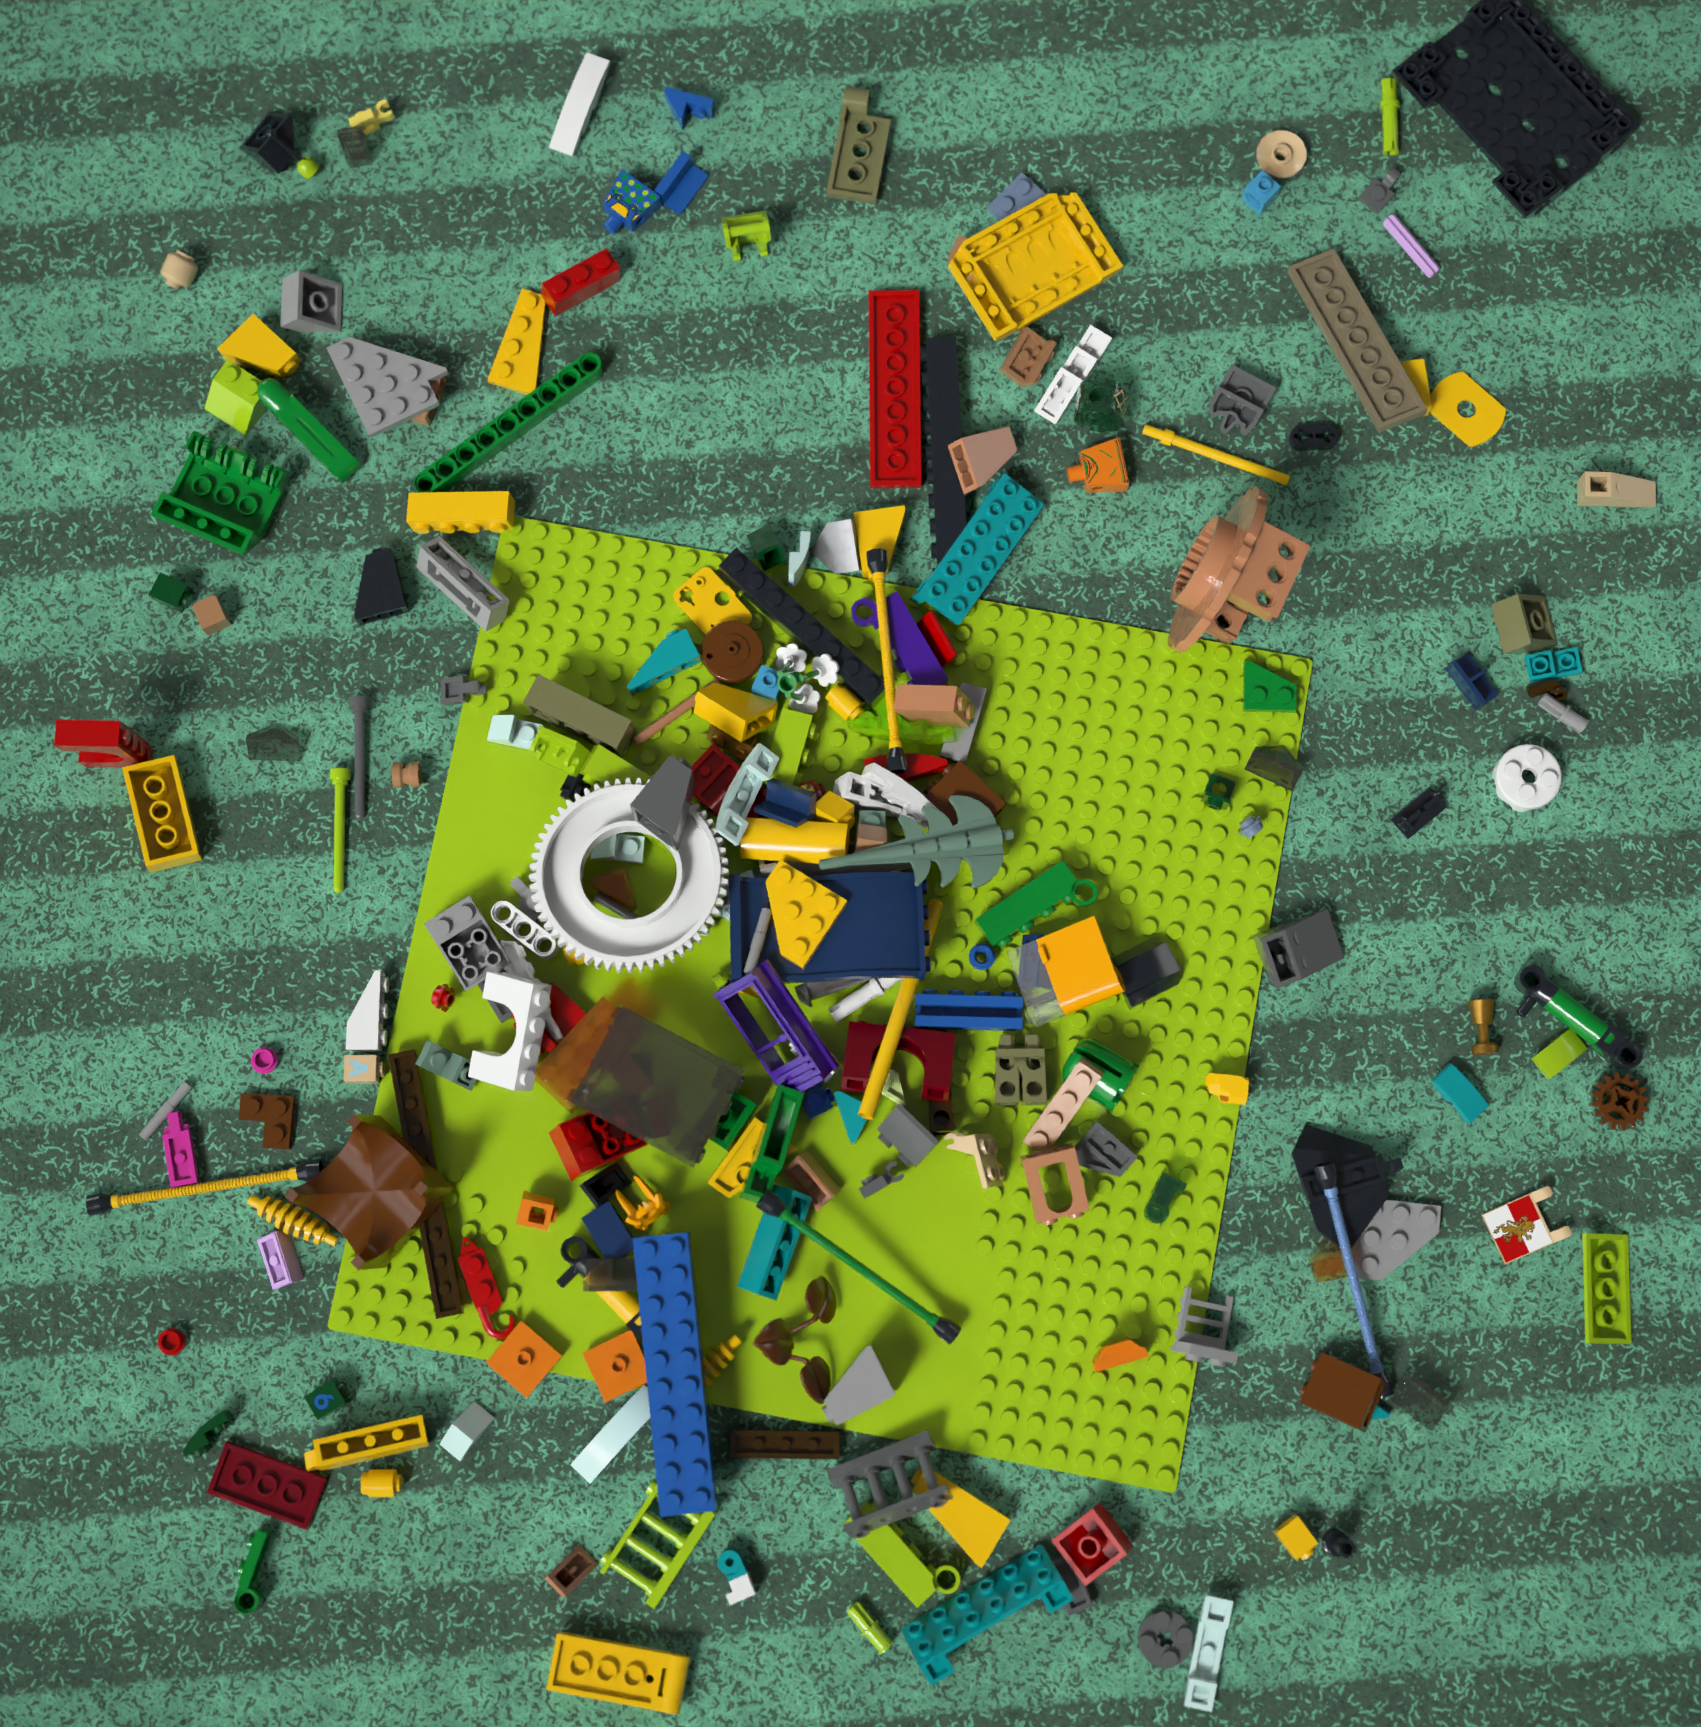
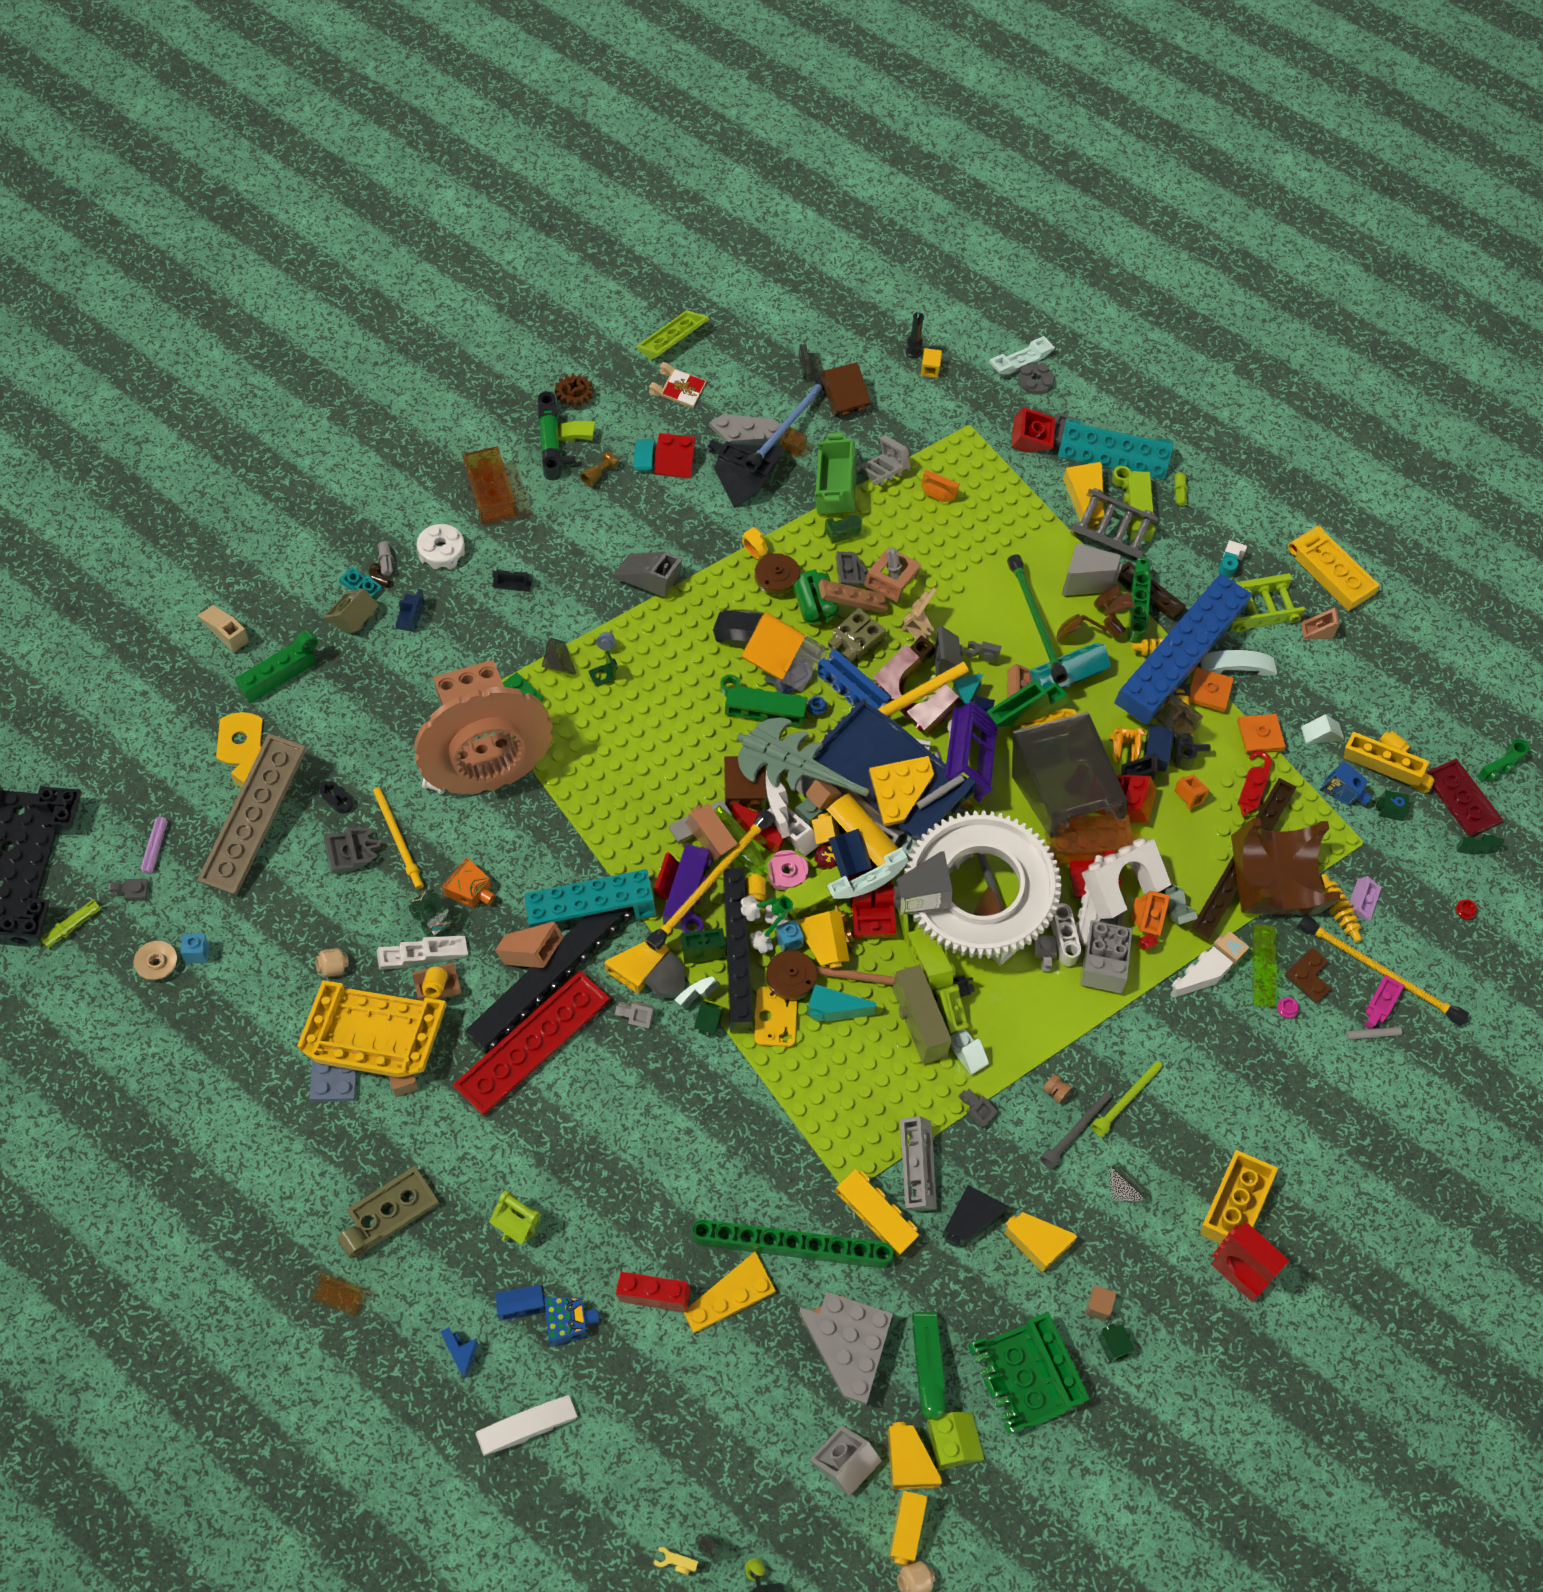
camera: 145 degrees left, 20 degrees down
(217, 297) = (907, 1528): none -> yellow slope
(307, 621) = (1038, 1239): none -> yellow slope
(318, 1083) = (1263, 965): none -> clear neon green slope
(389, 1373) = (1346, 785): none -> blue torso
(464, 1028) = (1150, 912): none -> orange slope
(803, 1446) = (1141, 607): none -> green piece
(826, 60) = (338, 1294): none -> clear orange panel
(832, 495) = (639, 1013): none -> light grey plate
(834, 738) = (794, 862): none -> bright pink plate
(837, 603) = (703, 945): none -> dark green hinge
(1025, 347) = (434, 982): none -> yellow brick
(1060, 1190) = (894, 565): none -> light grey axle
(1136, 291) = (331, 962): none -> tan head
(1170, 1071) = (776, 573): none -> reddish brown wheel
(1233, 1255) = (836, 475): none -> bright green container
(1426, 1121) = (674, 455): none -> red slope
(1513, 496) = (278, 667): none -> green hinge
(1562, 890) = (489, 485): none -> clear orange brick

